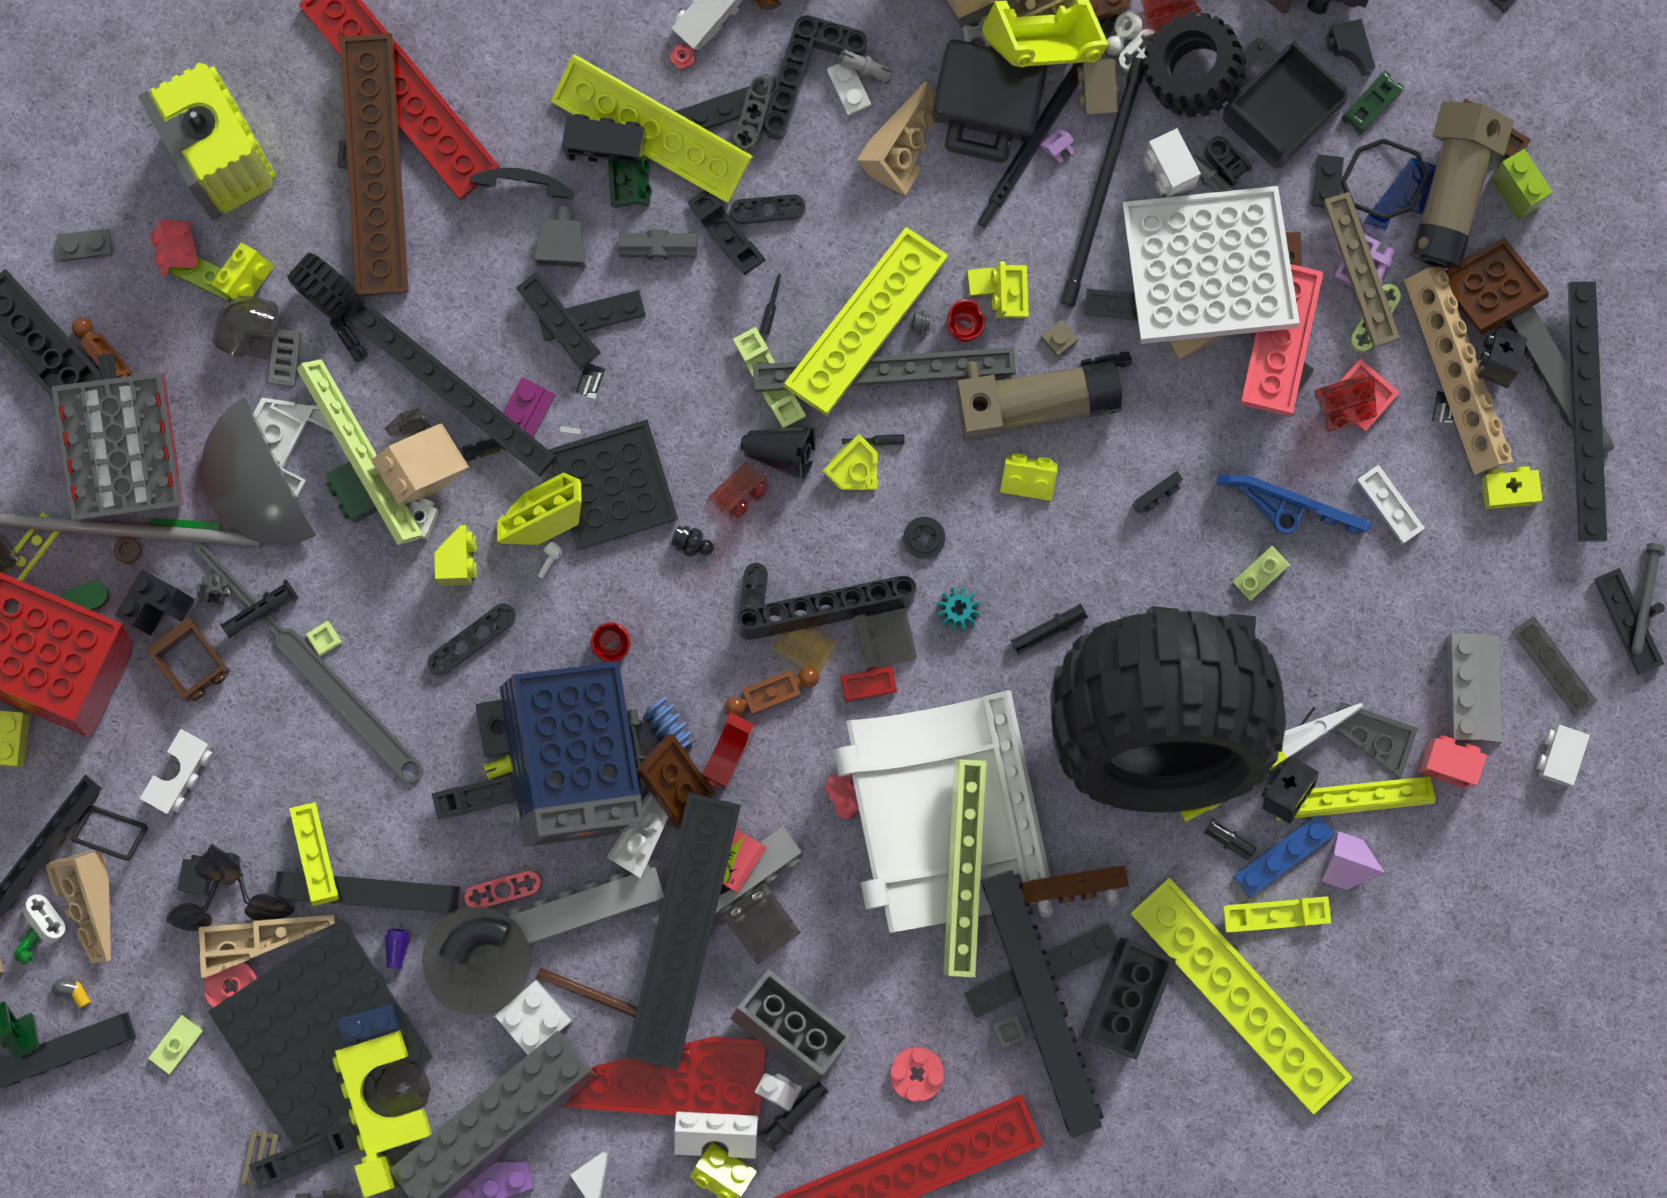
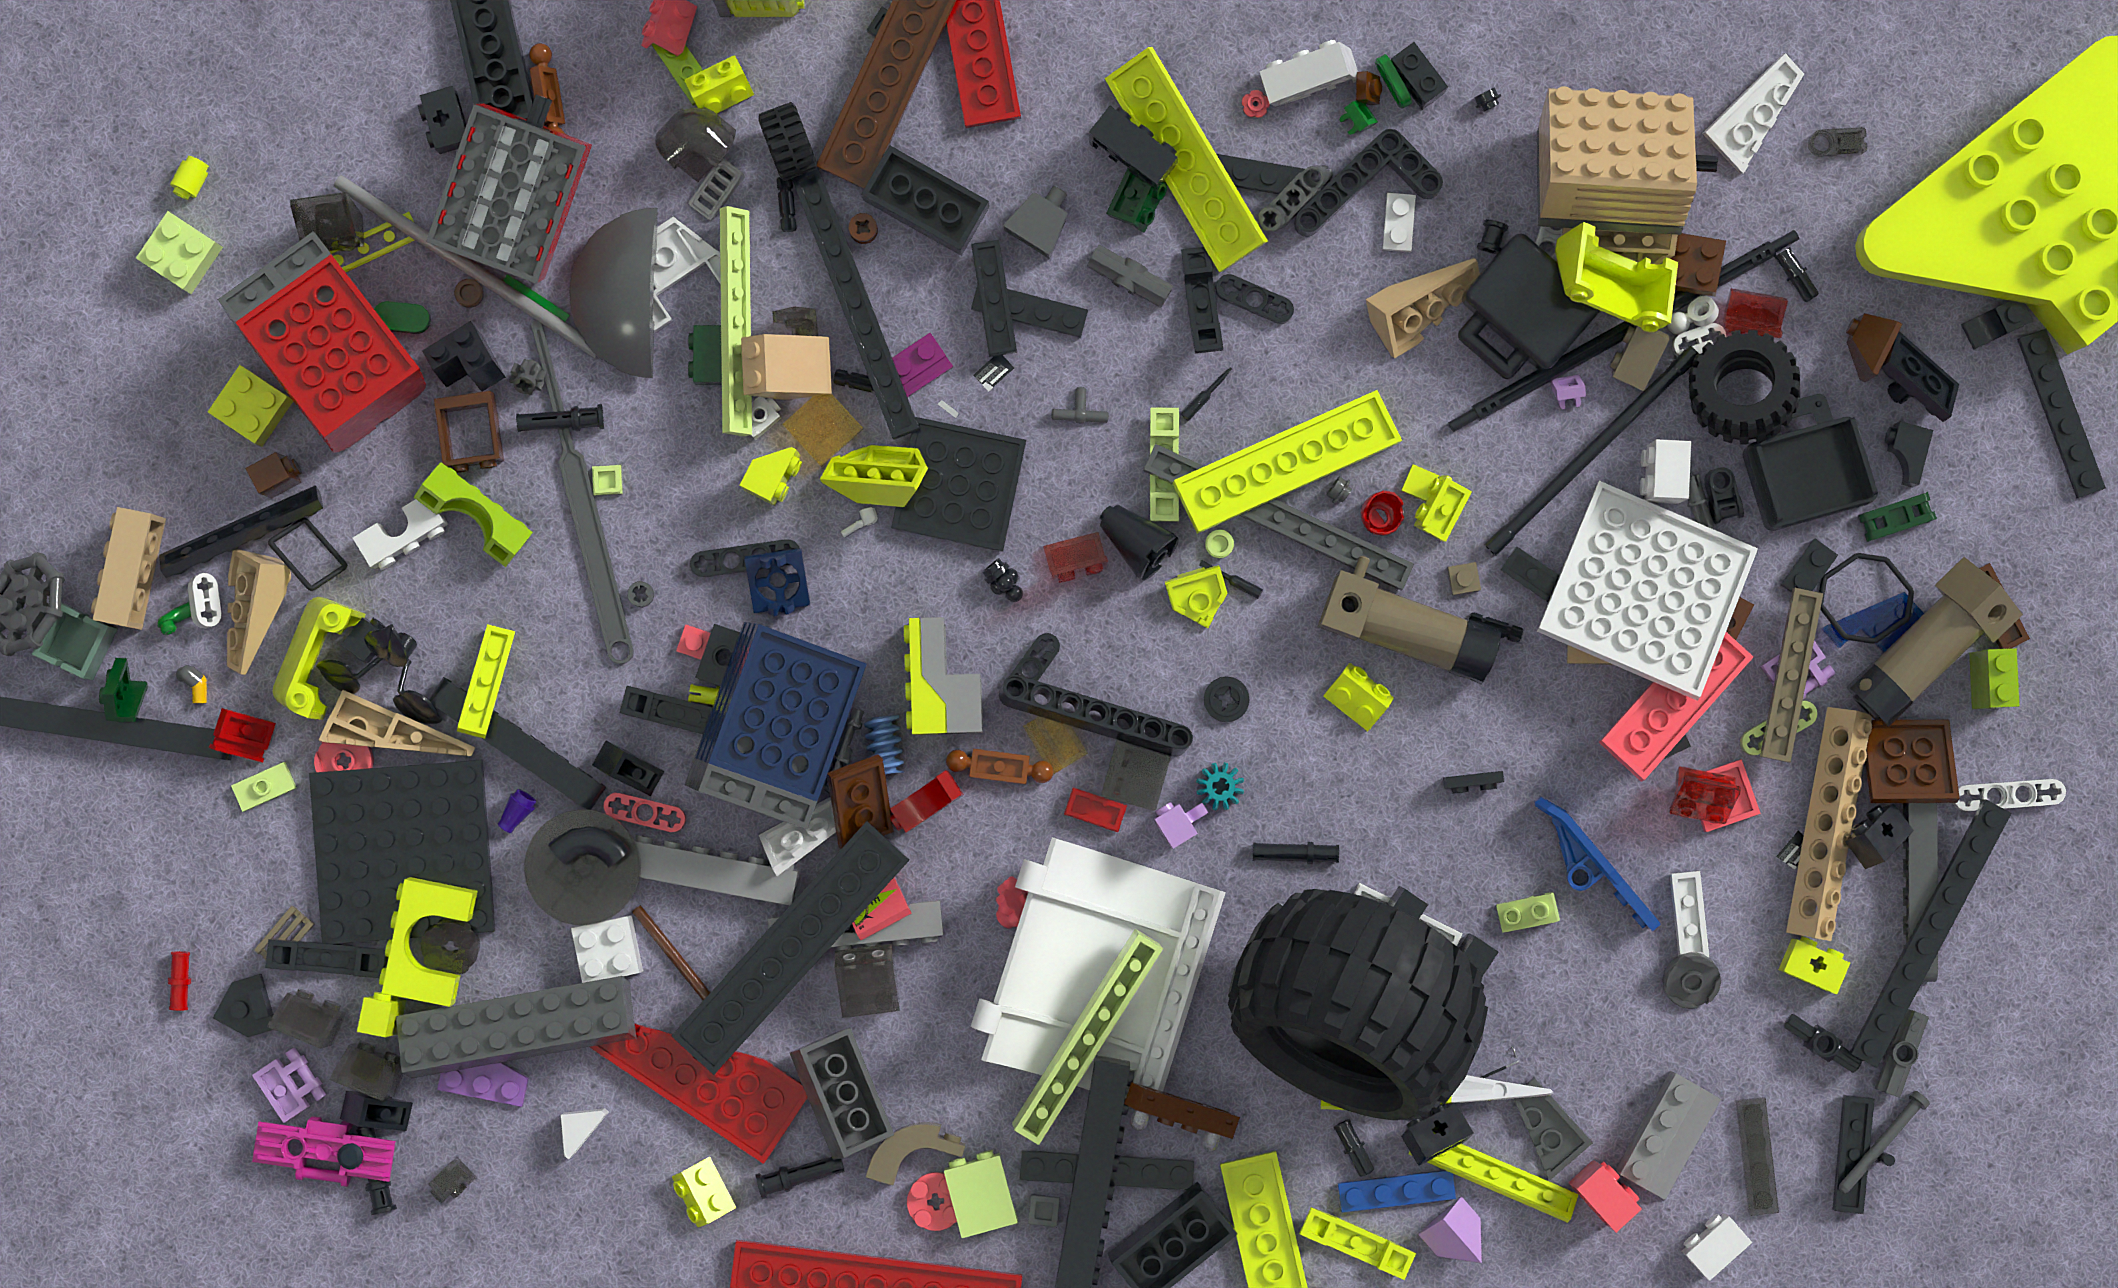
camera: 30 degrees right, 5 degrees up
(18, 414) = (437, 104): none -> black brick
(47, 782) = (274, 474): none -> reddish brown brick
(135, 1010) = (242, 735): none -> red plate
(153, 946) = (291, 682): none -> neon yellow windscreen
(199, 716) = (449, 492): none -> lime arch
(369, 1024) = (450, 871): dark blue brick -> none
(396, 721) = (632, 596): none -> dark grey bush
(425, 327) = (864, 235): none -> reddish brown wheel
(459, 273) = (925, 200): none -> black brick
(466, 730) = (693, 642): none -> coral plate
(469, 861) = (627, 768): none -> black slope
(476, 499) = (823, 427): none -> clear yellow plate
(496, 626) = (775, 561): none -> dark blue piece
(555, 188) = (1060, 166): black slope -> none
(607, 634) = (874, 624): red hair -> none
(678, 376) = (1080, 413): none -> dark grey piece
(694, 663) = (938, 700): none -> piece
(697, 1129) = (734, 1159): white arch -> none
(771, 20) = (1360, 115): none -> green tile
(778, 1090) = (797, 1145): white brick -> none
(848, 417) = (1219, 544): none -> yellowish green tile
(859, 1049) = (906, 1139): none -> dark tan arch
(864, 65) = (1425, 210): light grey pin -> none
(929, 57) = (1492, 236): none -> black bush
(940, 657) = (1177, 824): none -> lavender brick
(950, 1046) = (980, 1194): none -> yellowish green panel
(1421, 554) = (1691, 980): none -> dark grey tile
(1566, 546) = (1810, 1036): none -> black axle
(1583, 269) = (2008, 797): none -> white beam
(1622, 536) = (1896, 1071): none -> dark grey piece

